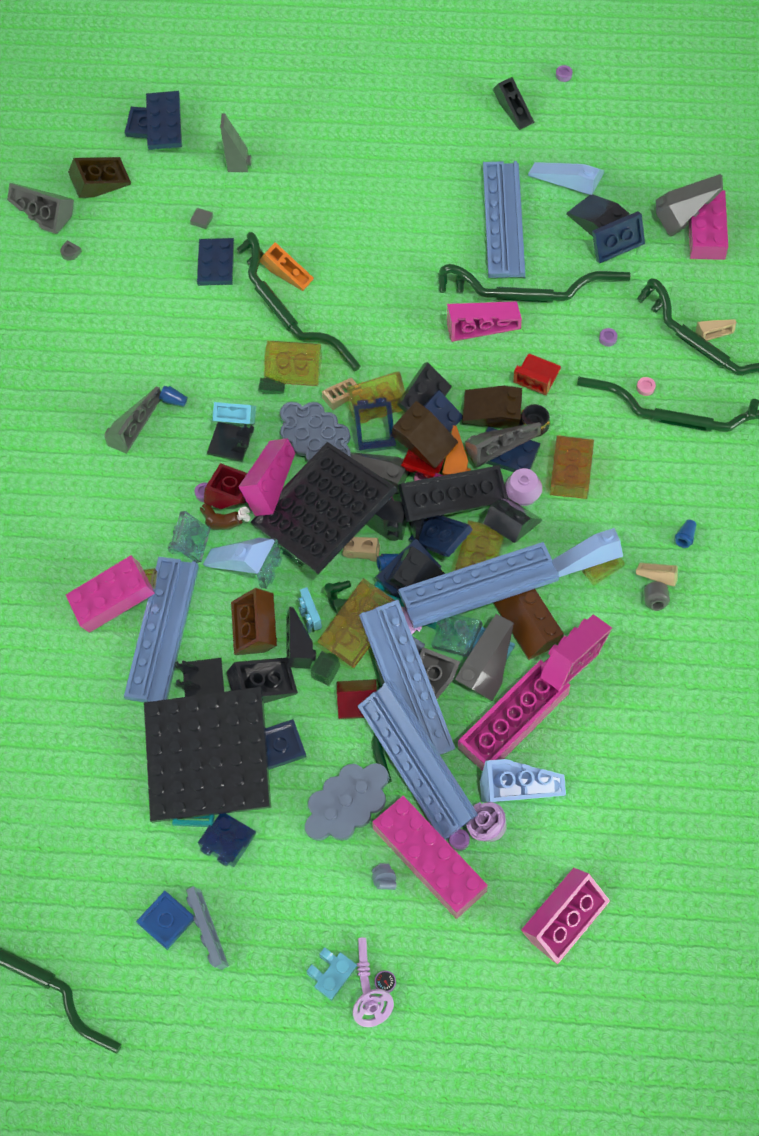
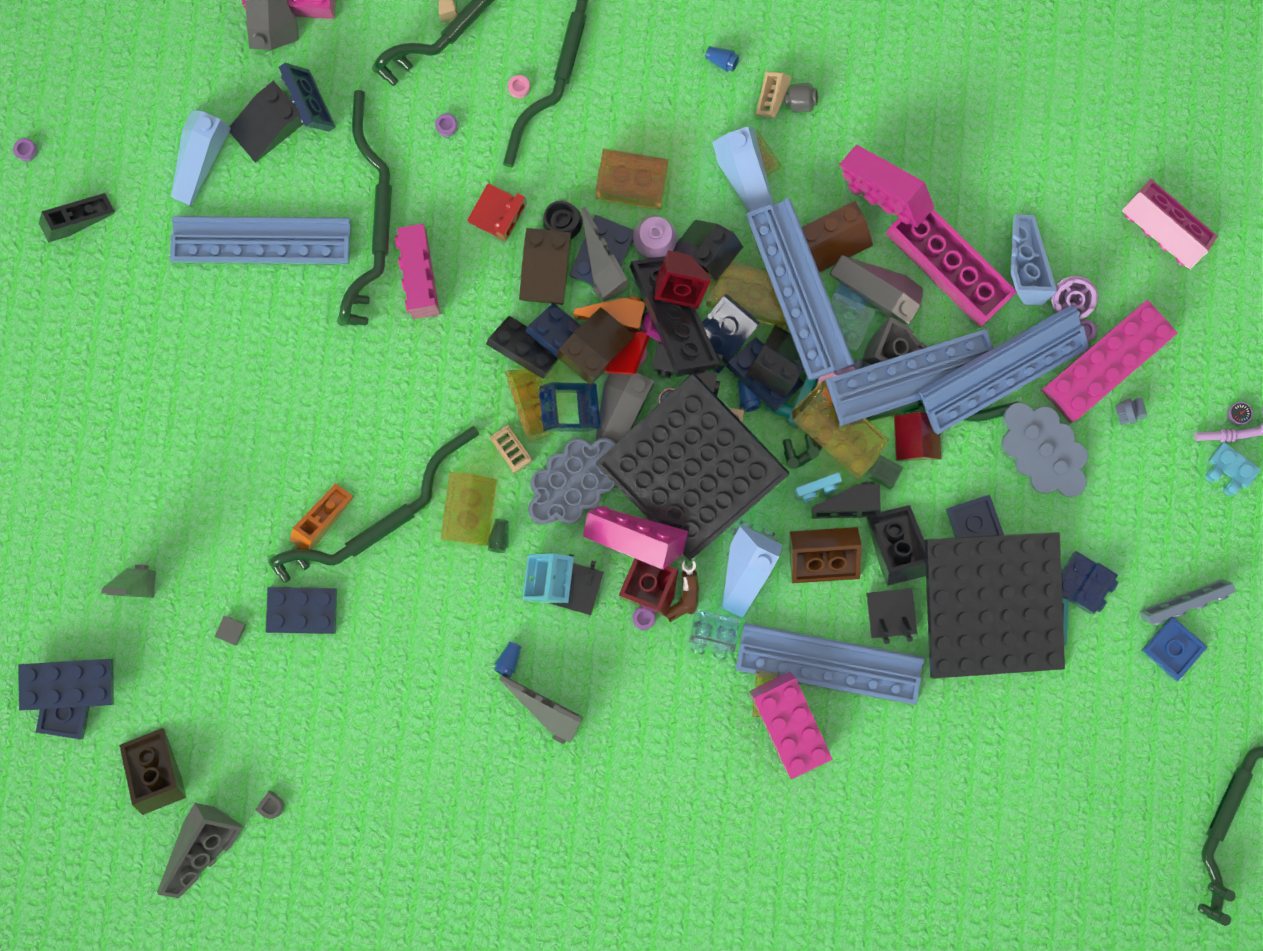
camera: 90 degrees left, 20 degrees up
(479, 490) = (681, 280): none -> dark red slope

